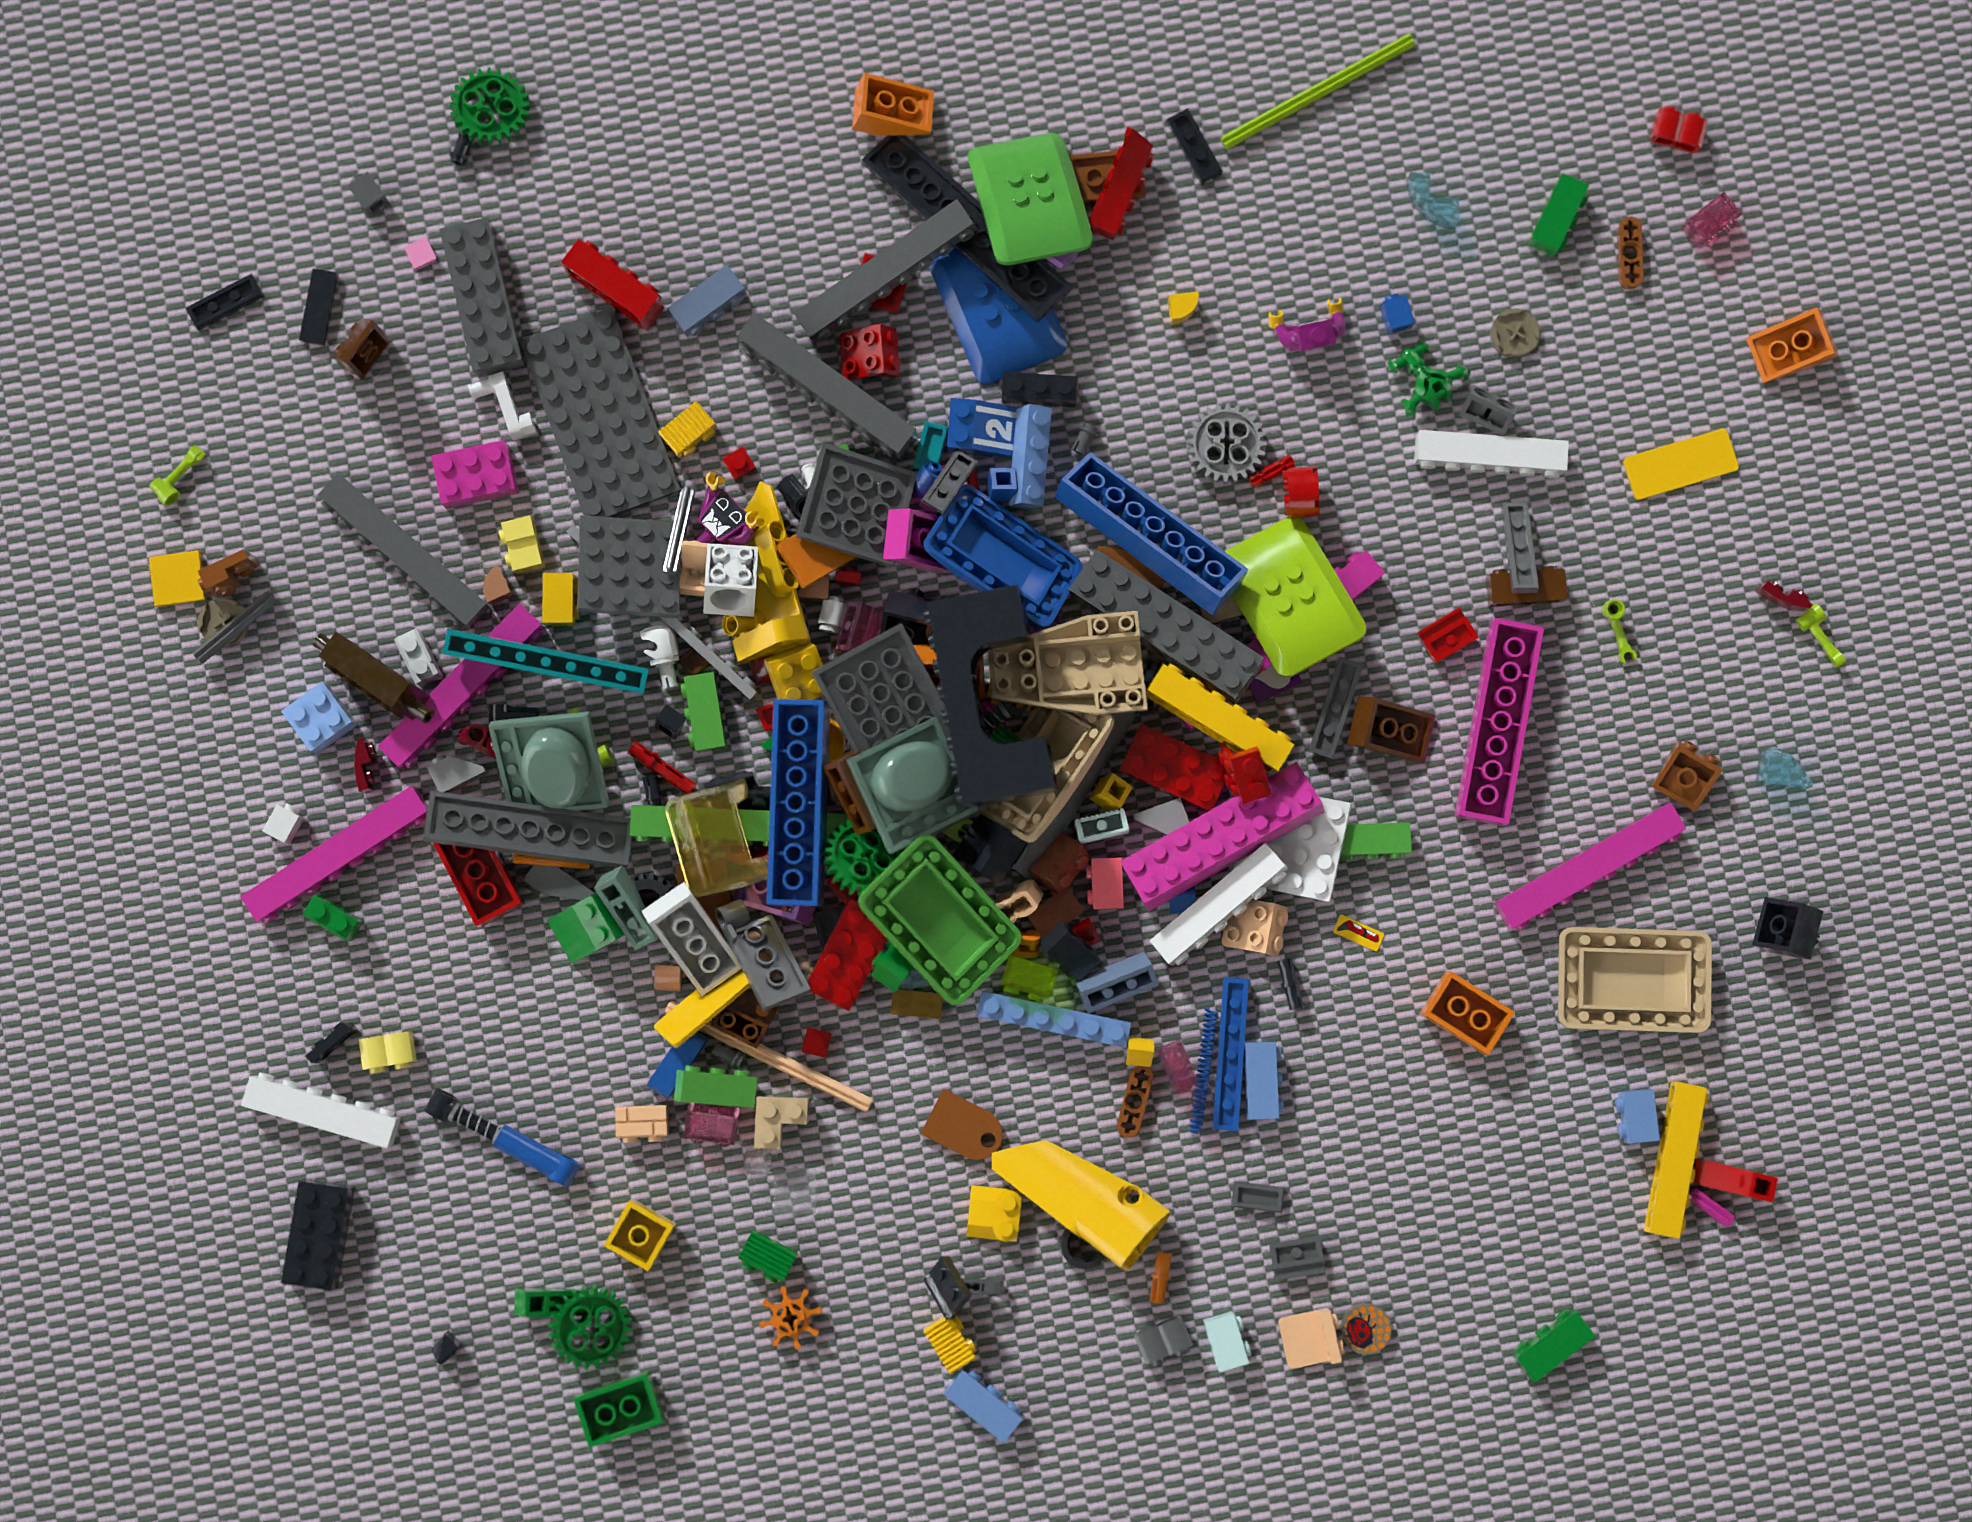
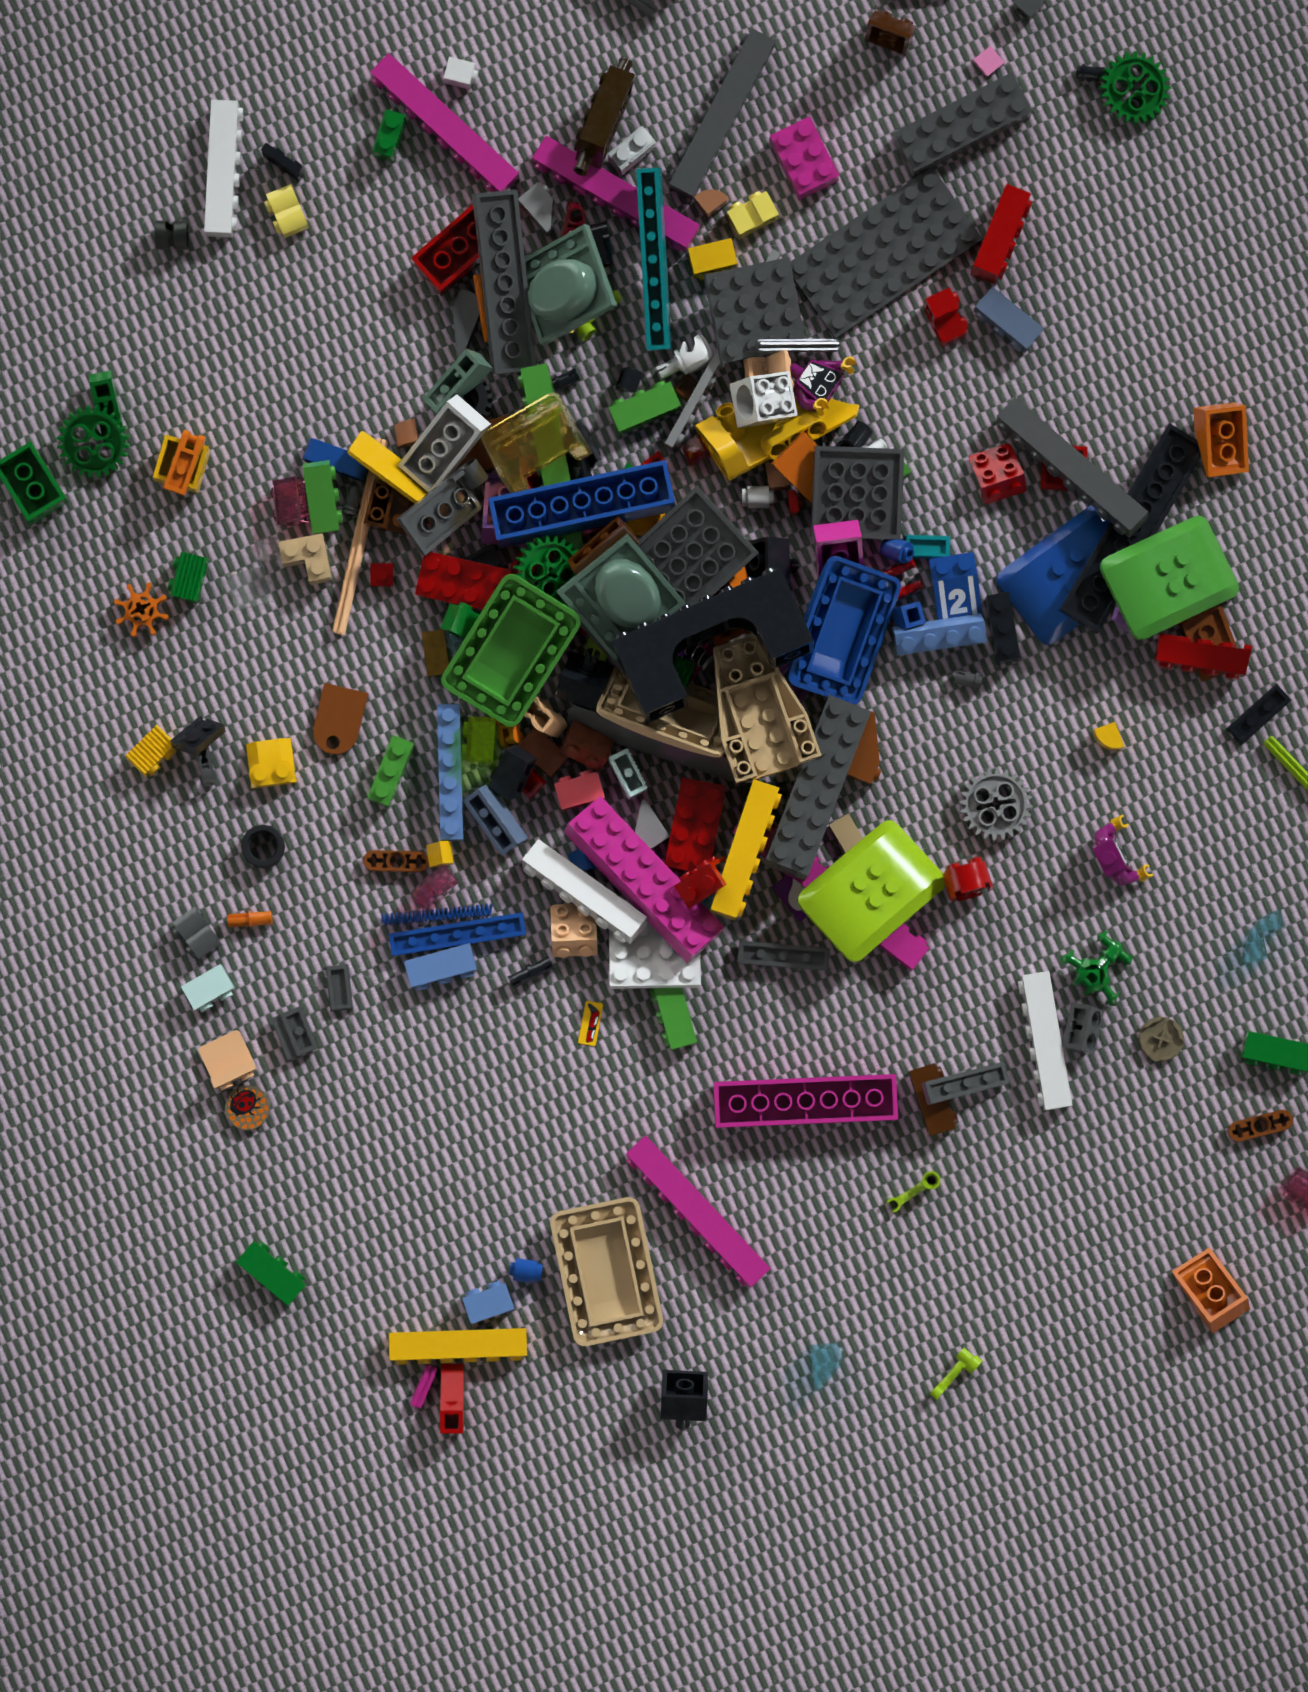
camera: 75 degrees right, 0 degrees up
(318, 1234) = (117, 192): black brick -> none
(319, 717) = (558, 80): light blue brick -> none
(364, 757) = (534, 126): dark red slope -> none
(381, 1185) = (171, 235): none -> pearl dark grey wheel
(446, 1347) = (47, 325): black slope -> none
(505, 1139) = (232, 342): piece -> none
(518, 426) = (856, 183): white beam -> none
(585, 928) = (431, 351): green slope -> none
(641, 1232) = (184, 463): none -> orange plate
(642, 1121) = (278, 442): light nougat brick -> none
(659, 766) = (588, 379): red pin -> none
(687, 367) = (944, 316): none -> red brick
(688, 430) = (889, 332): yellow brick -> none
(739, 463) = (871, 383): red plate -> none
(792, 672) = (696, 471): yellow brick -> none
(827, 388) = (957, 438): dark grey brick -> none
(859, 626) = (751, 521): clear pink brick -> none
(948, 483) = (896, 567): tile -> none
(984, 1404) = (106, 792): medium blue brick -> none
(1036, 1084) = (391, 771): none -> bright green brick
(1084, 1199) = (301, 836): yellow panel -> none
(1110, 792) = (659, 775): yellow brick -> none
(1151, 533) = (895, 754): blue brick -> none
(1271, 471) = (981, 851): red axle -> none
(1391, 729) = (776, 1009): reddish brown slope -> none
(1396, 313) = (1150, 928): blue brick -> none
(1447, 635) = (872, 1039): red plate -> none
(1467, 1013) = (542, 1130): orange brick -> none
(1612, 1066) = (526, 1270): none -> blue brick
(1680, 464) = (1079, 1214): yellow piece -> none
(1687, 775) = (800, 1280): dark orange plate -> none
(1791, 600) = (980, 1341): dark red slope -> none

